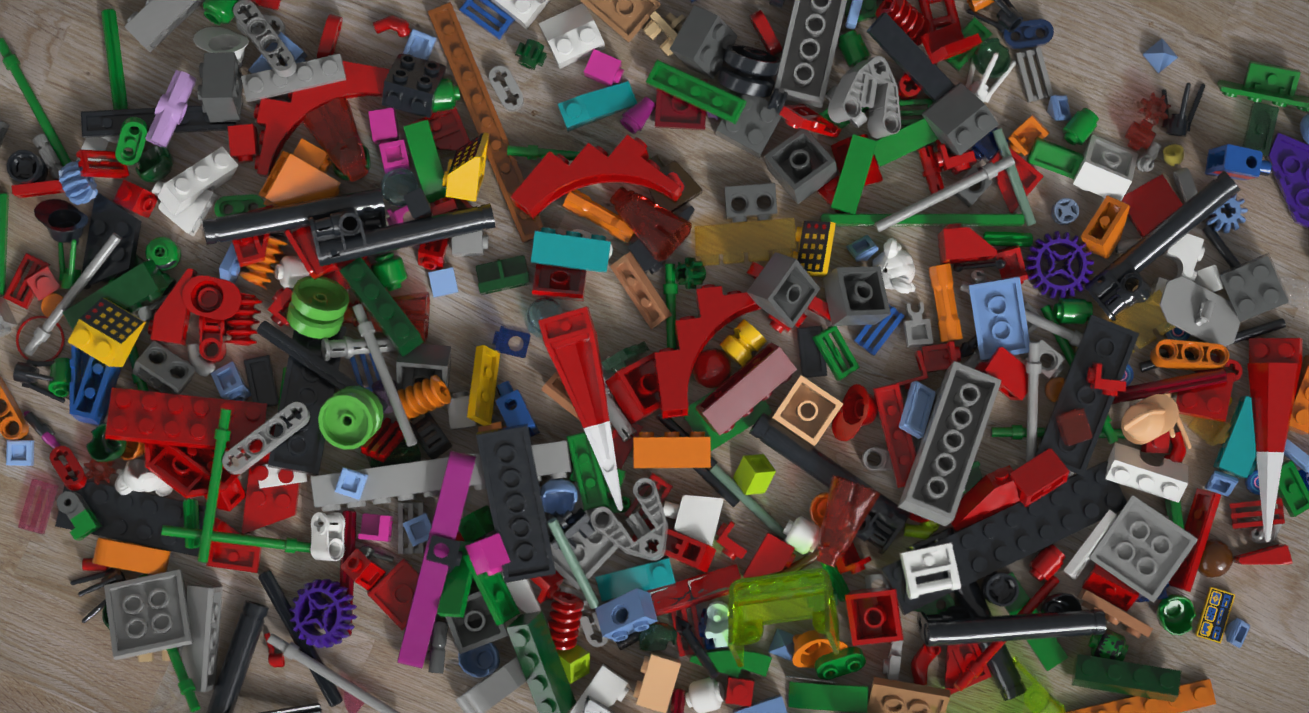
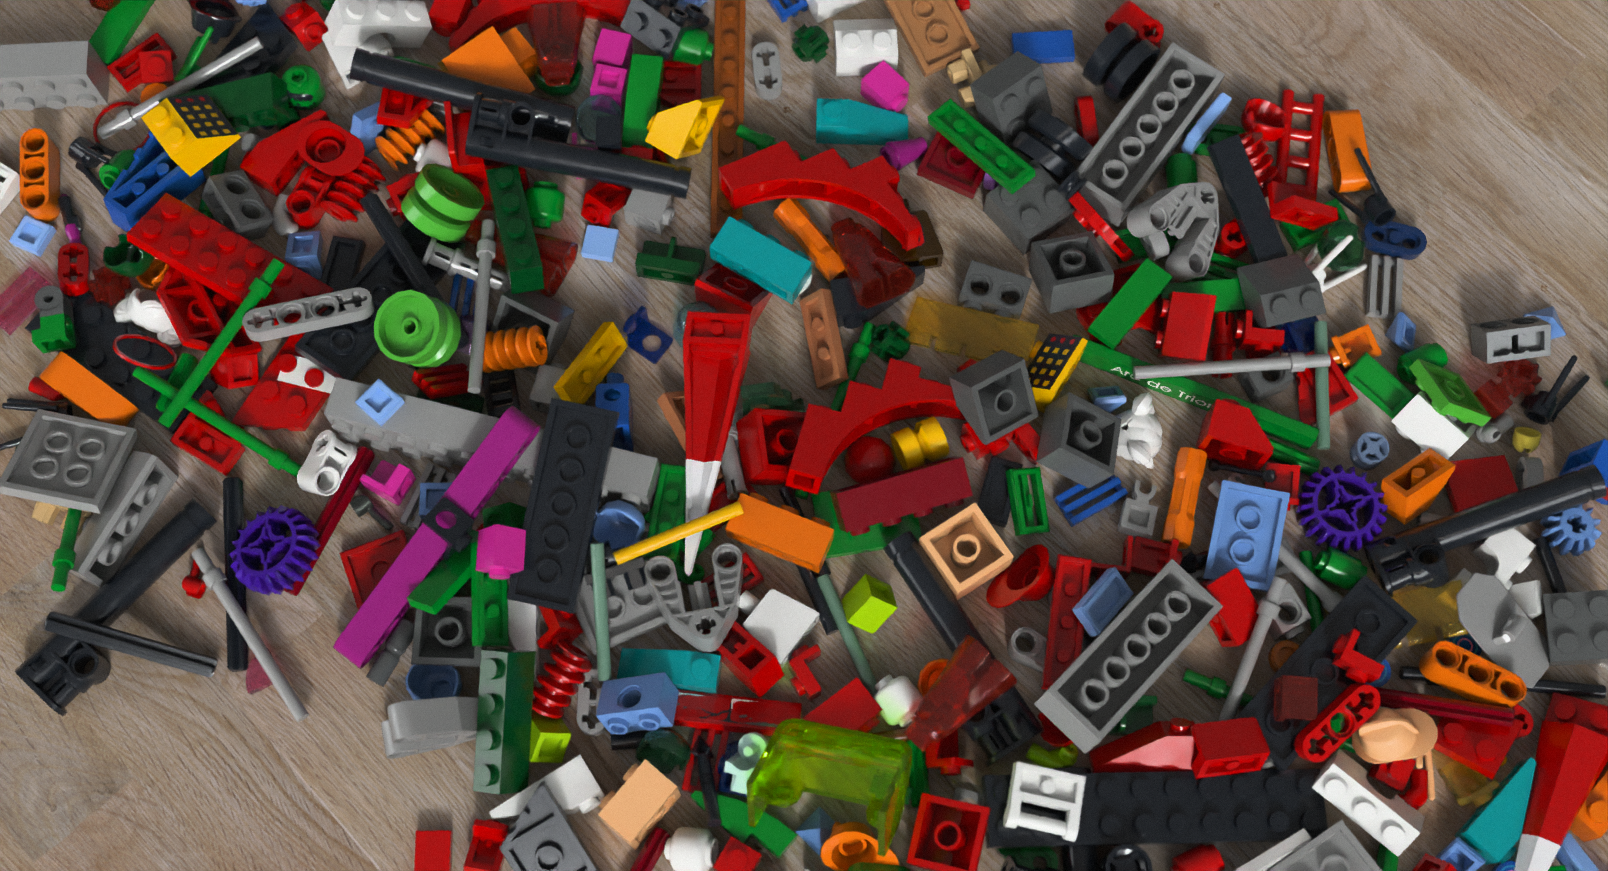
camera: 20 degrees right, 15 degrees down
(157, 525) = (140, 364): none -> red piece
(362, 570) = (348, 521): red bracket -> none
(607, 482) = (678, 533): none -> yellow bar
(900, 175) = (1185, 326): none -> red slope
(1097, 432) = (1325, 746): none -> red beam
(1107, 148) = (1449, 393): none -> bright green plate
(1138, 83) = (1511, 339): none -> dark grey brick

